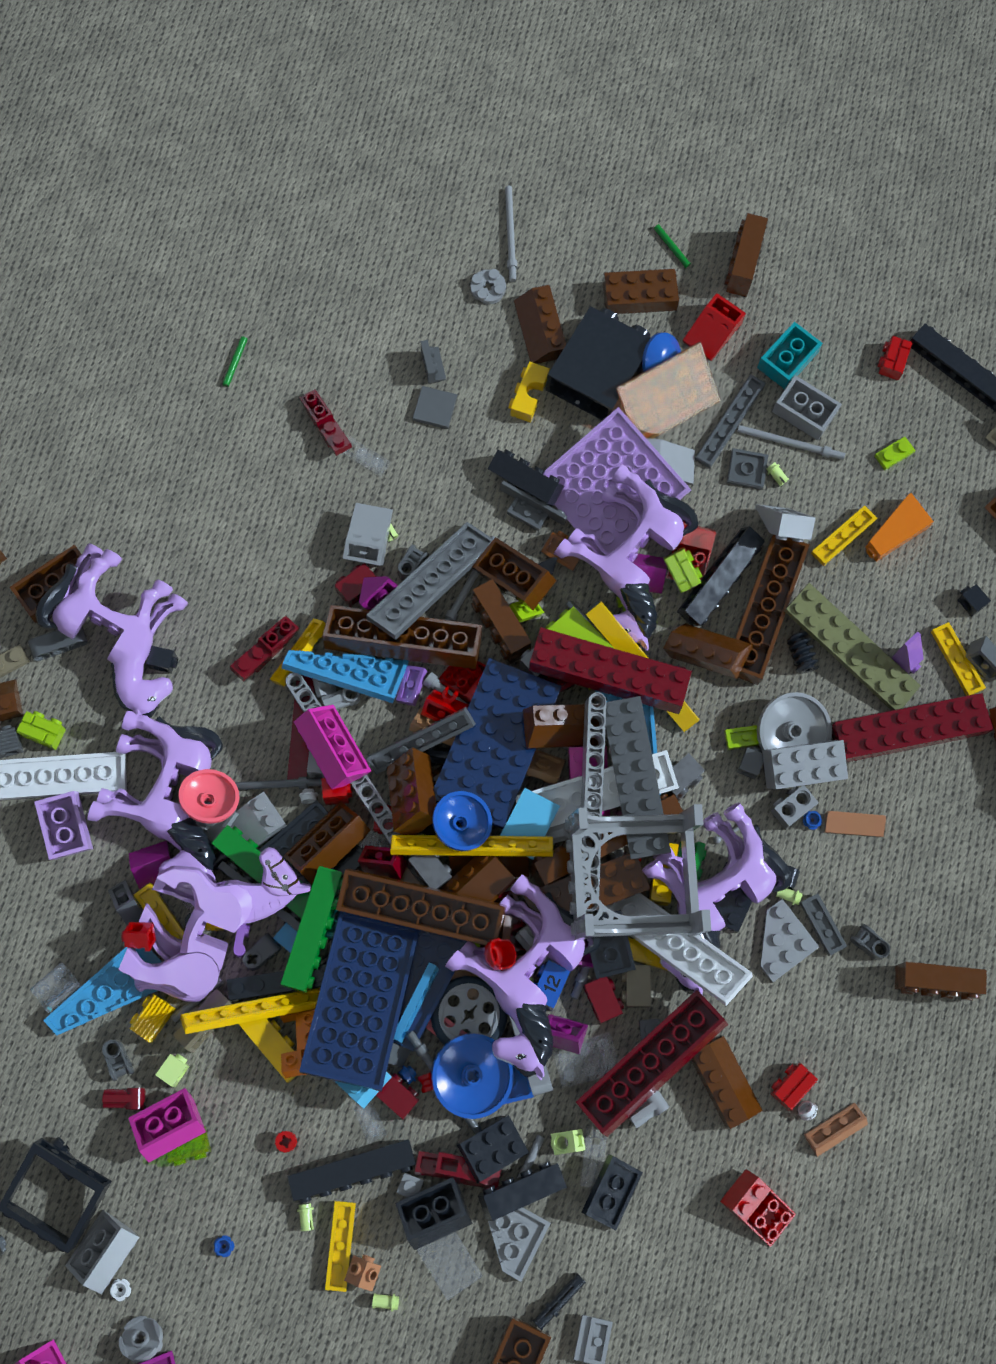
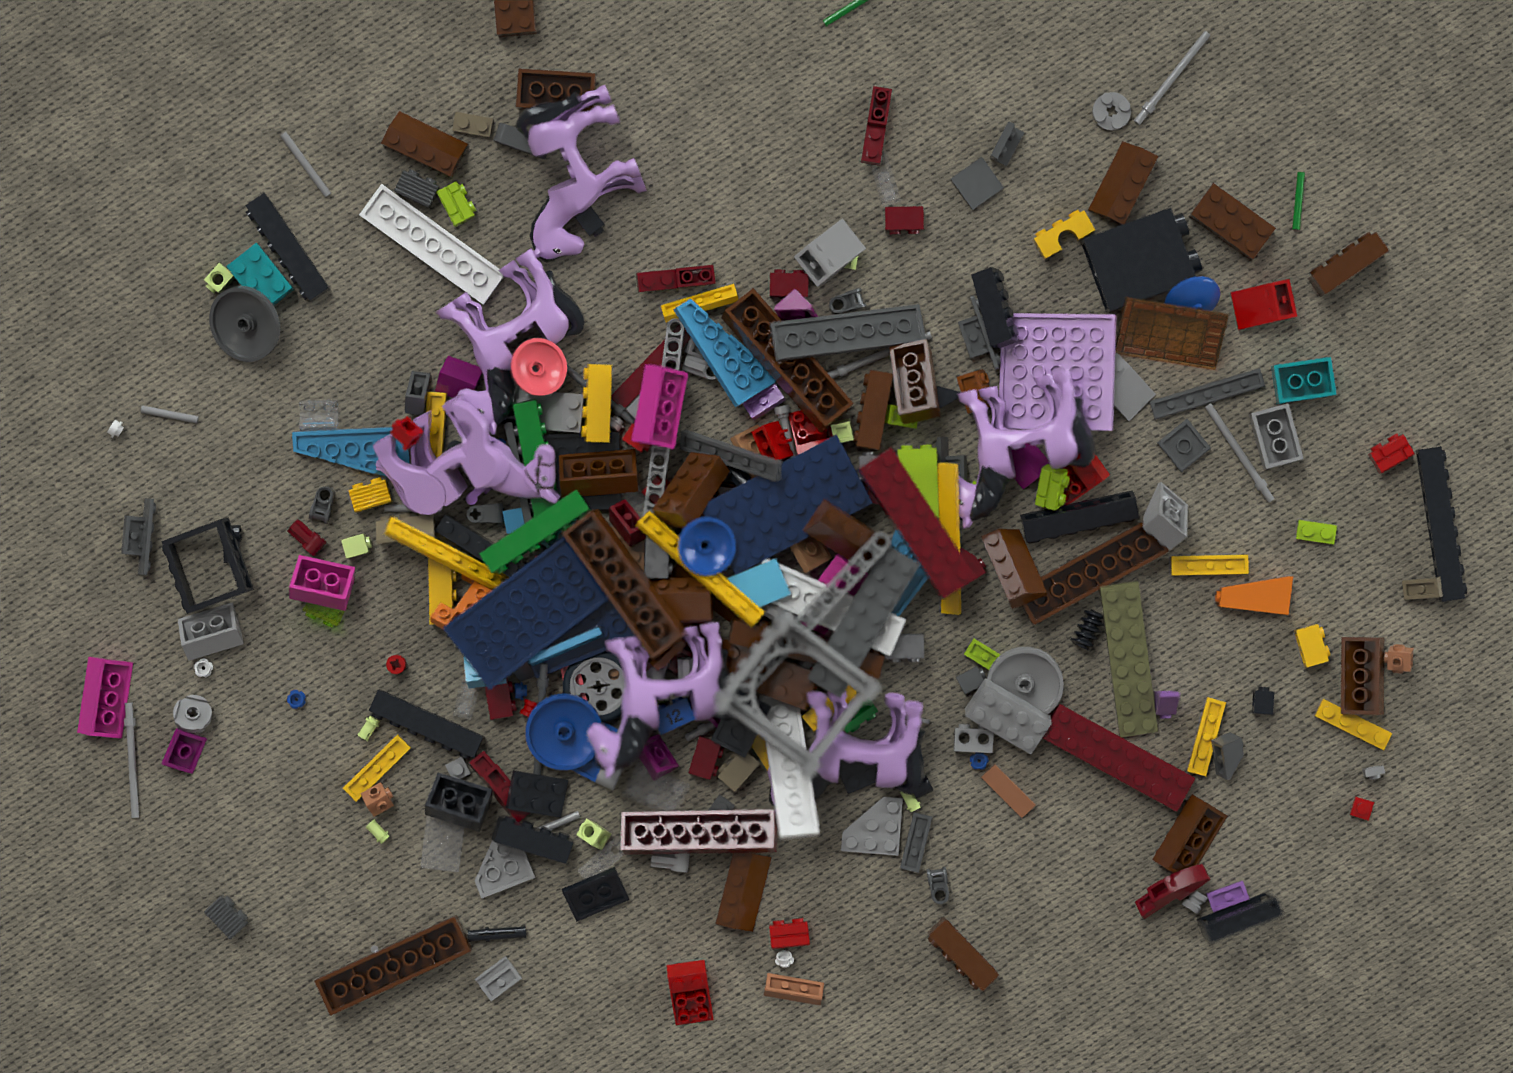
camera: 45 degrees right, 15 degrees up
(63, 825) = (416, 296): lavender brick -> none
(280, 787) = (598, 402): none -> yellow brick
(403, 471) = (904, 219): none -> dark red brick
(492, 652) = (843, 430): none -> yellowish green brick
(500, 954) = (650, 667): red hair -> none
(776, 473) = (1203, 470): yellowish green pin -> none
(968, 532) = (1312, 645): none -> yellow brick

